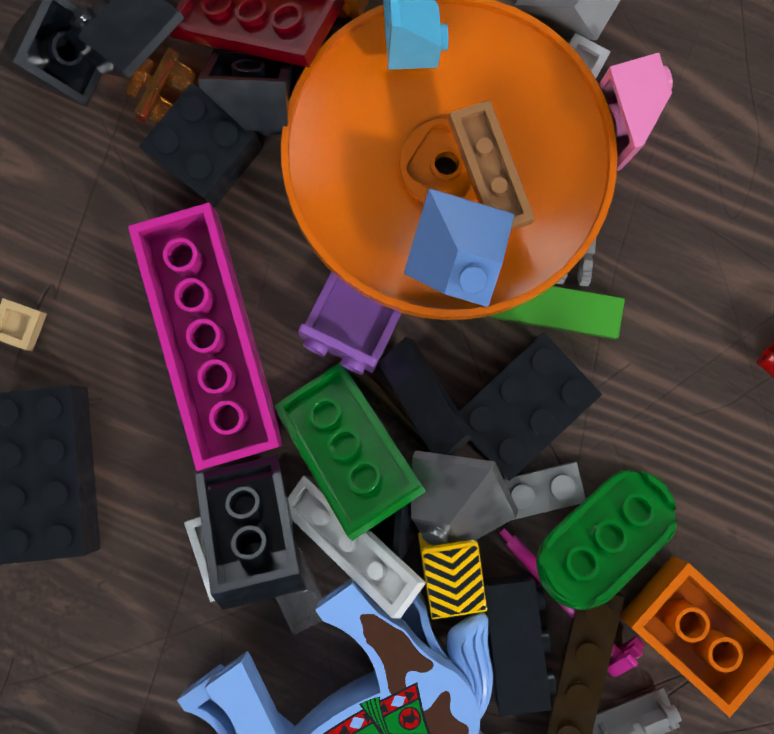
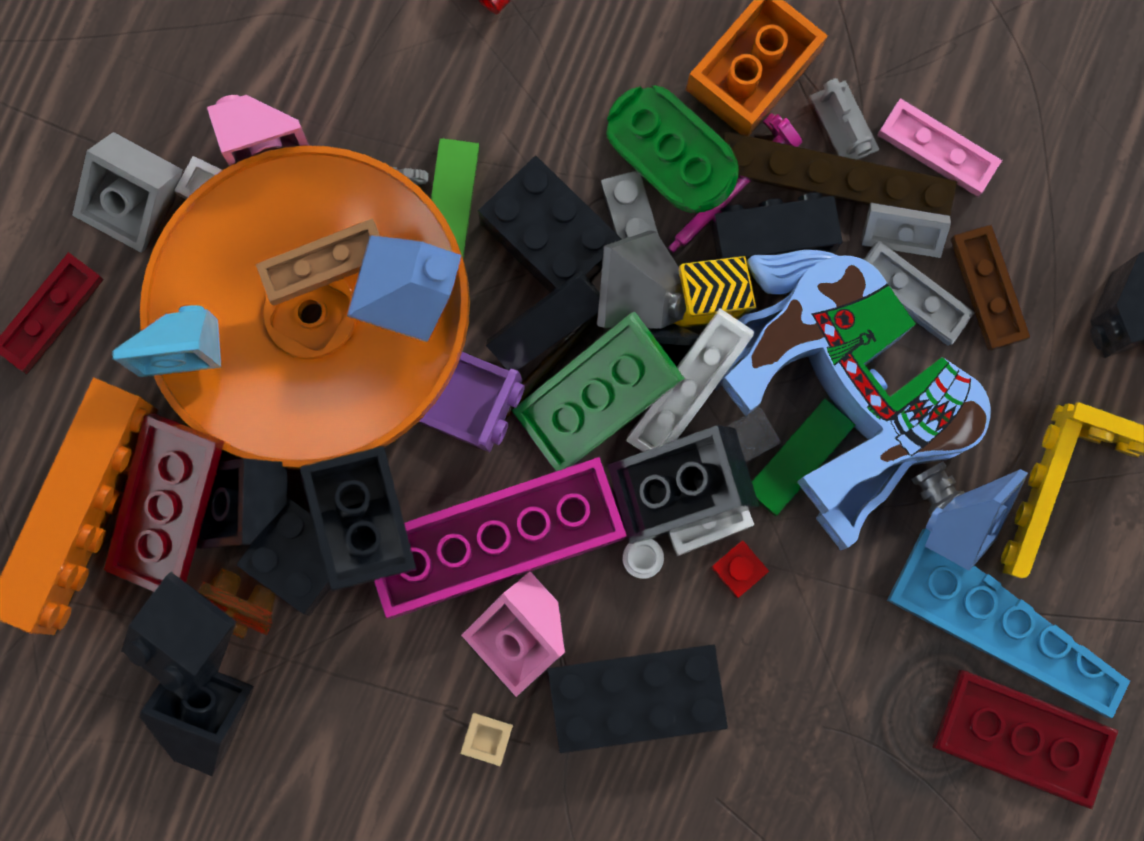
camera: 100 degrees left, 5 degrees down
(115, 361) = (519, 634): none -> bright pink slope
(170, 583) = (739, 569): none -> red plate
(182, 487) = (643, 559): none -> white plate
(218, 196) = (357, 518): none -> black slope
(281, 654) = (800, 456): none -> green tile

